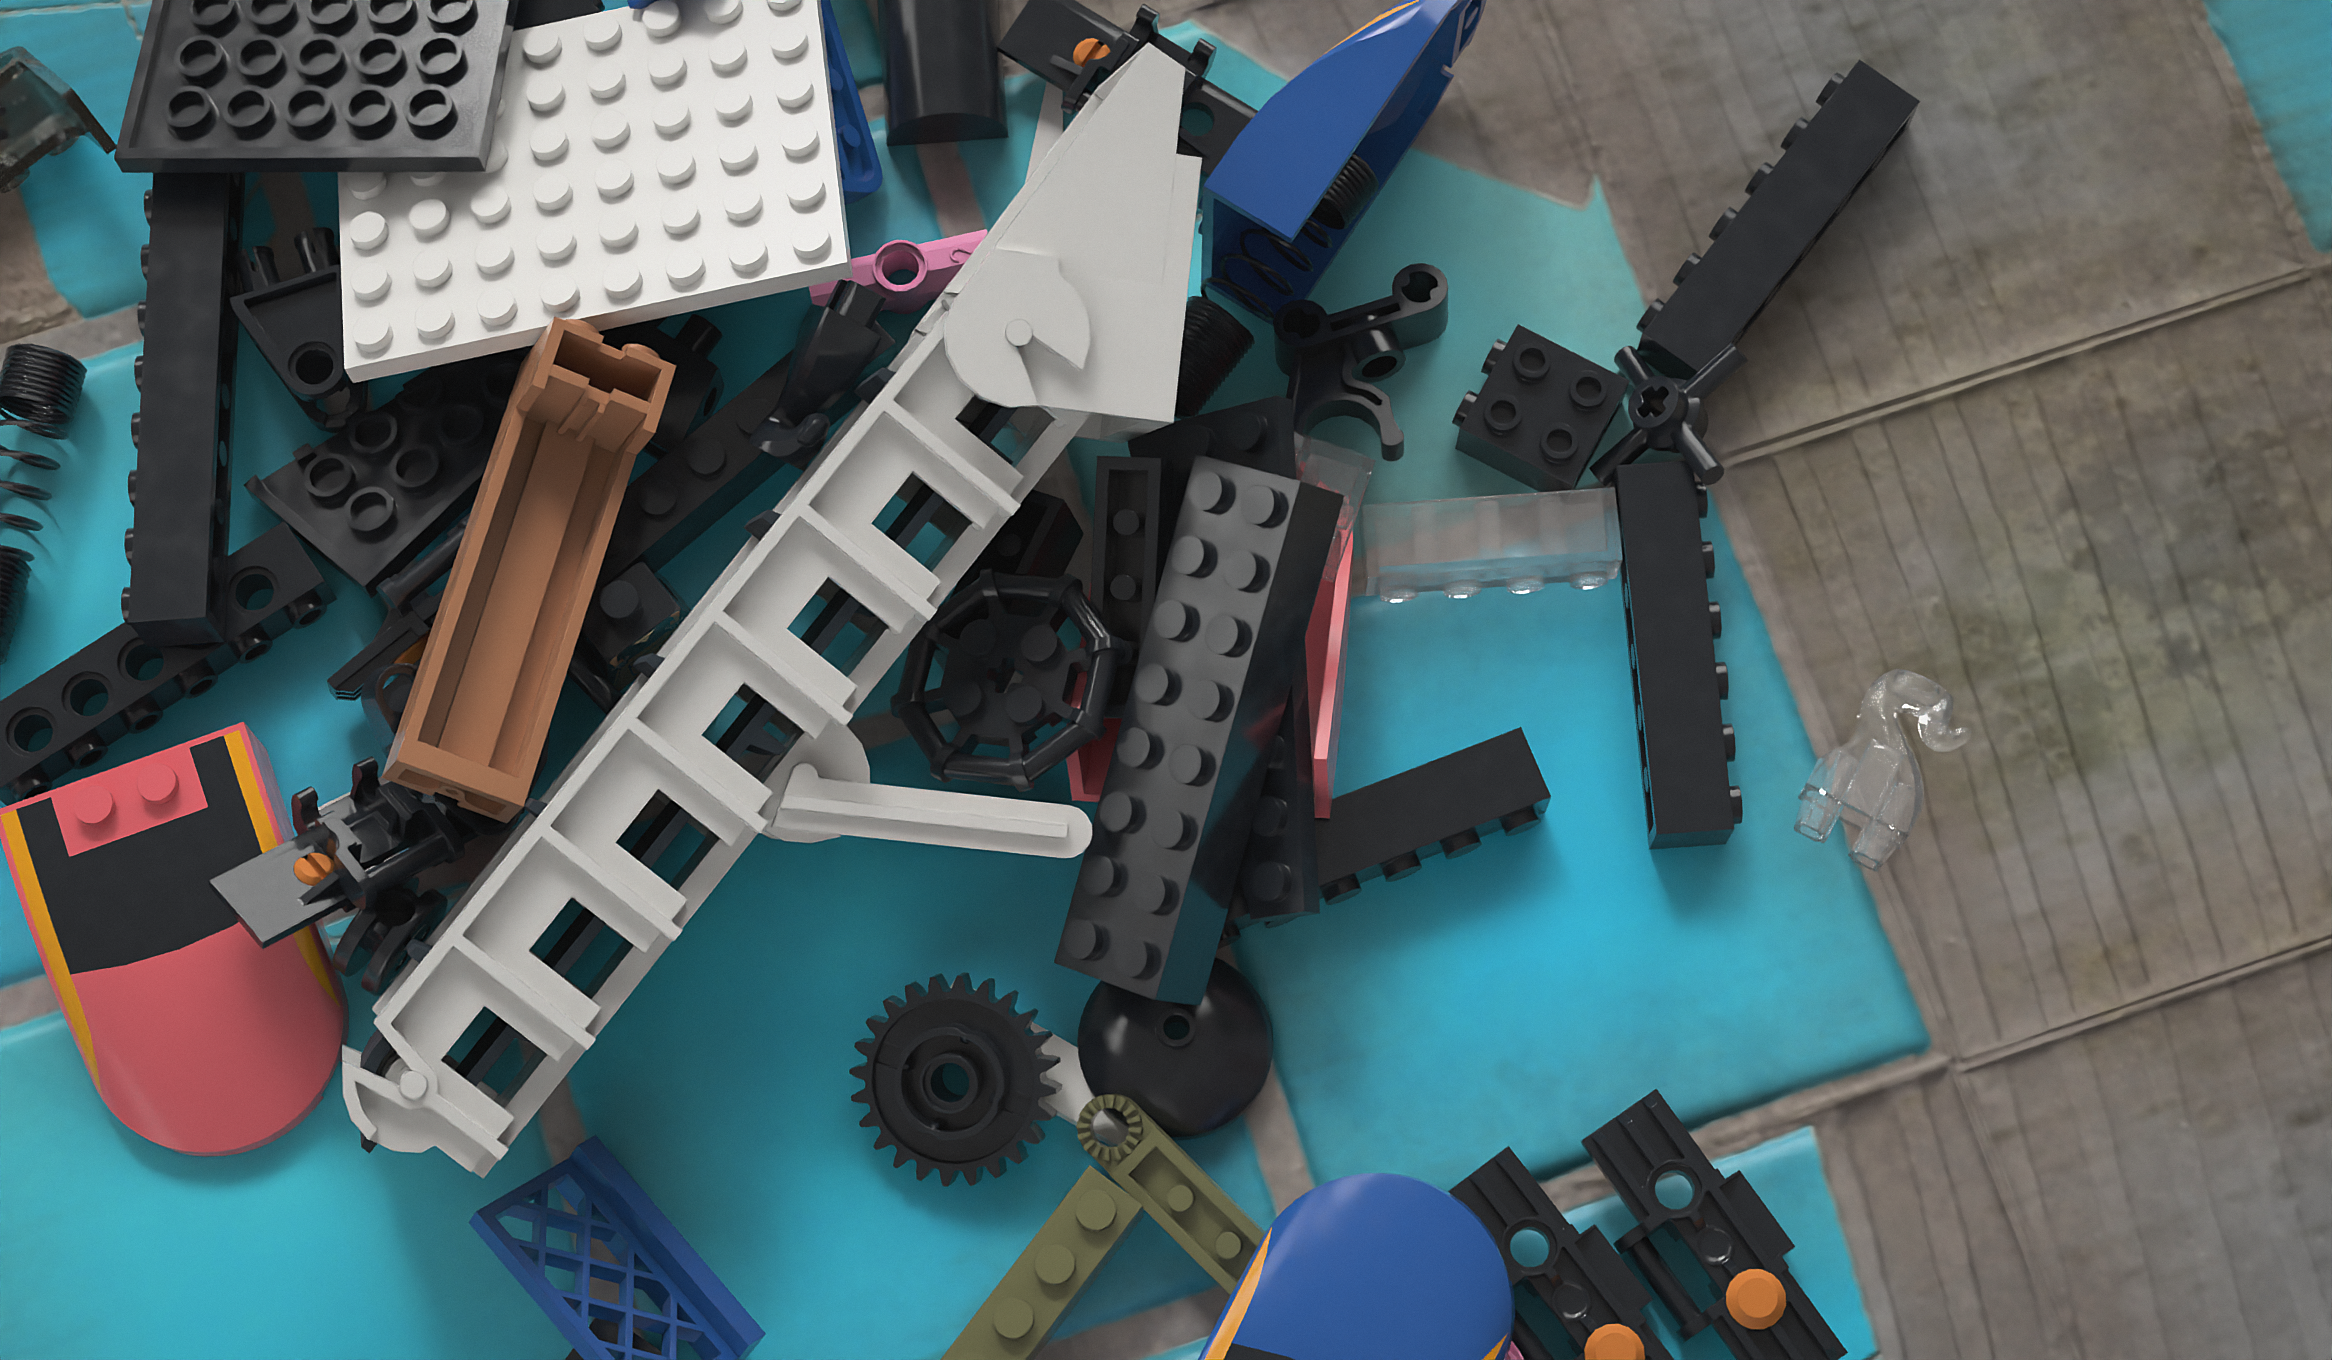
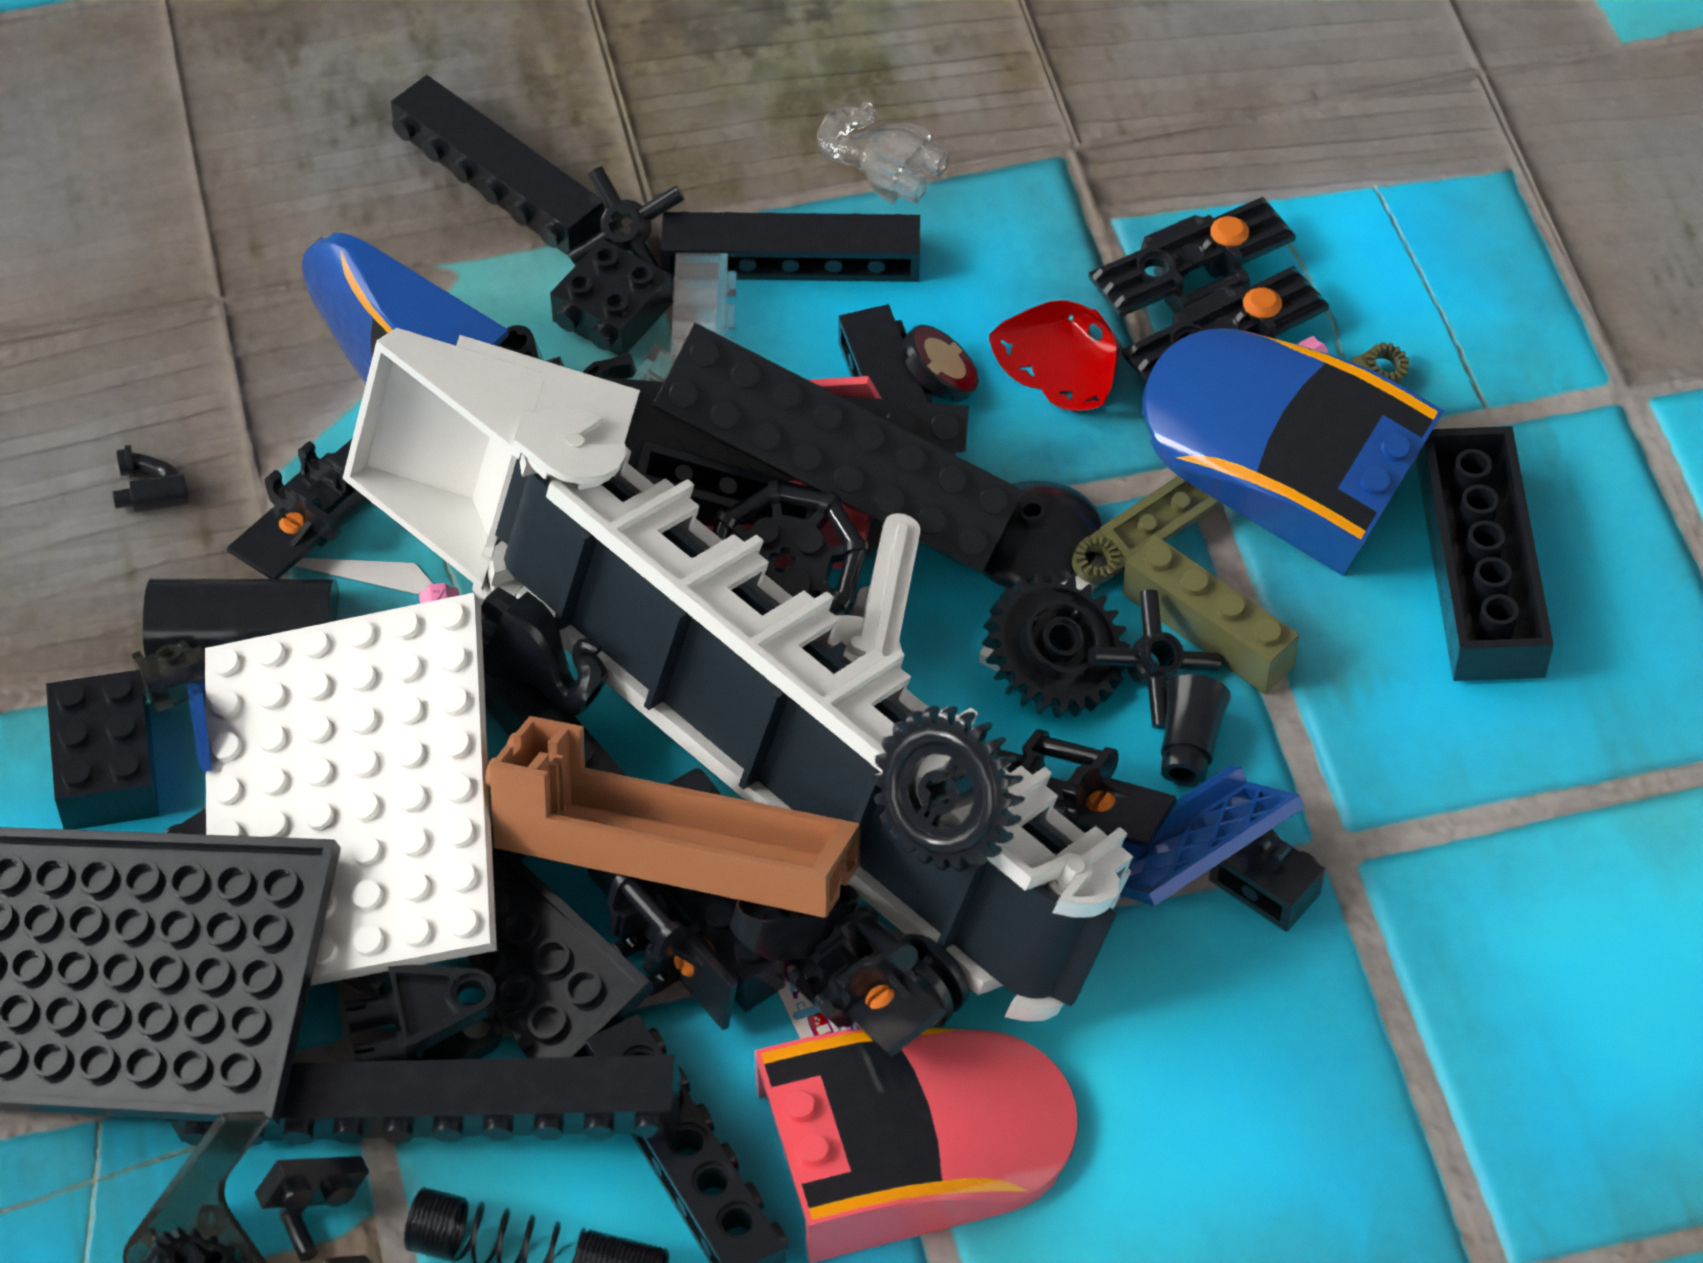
camera: 85 degrees left, 20 degrees down
(66, 222) = (305, 1183): none -> black plate
(421, 943) = (970, 777): none -> black gear
(677, 1087) = (1091, 794): none -> black piece
(831, 1277) = (1191, 727): none -> black plant
(962, 1203) = (1164, 647): none -> black bar
(1457, 882) = (939, 363): none -> tile
(1510, 1077) = (1060, 353): none -> red piece

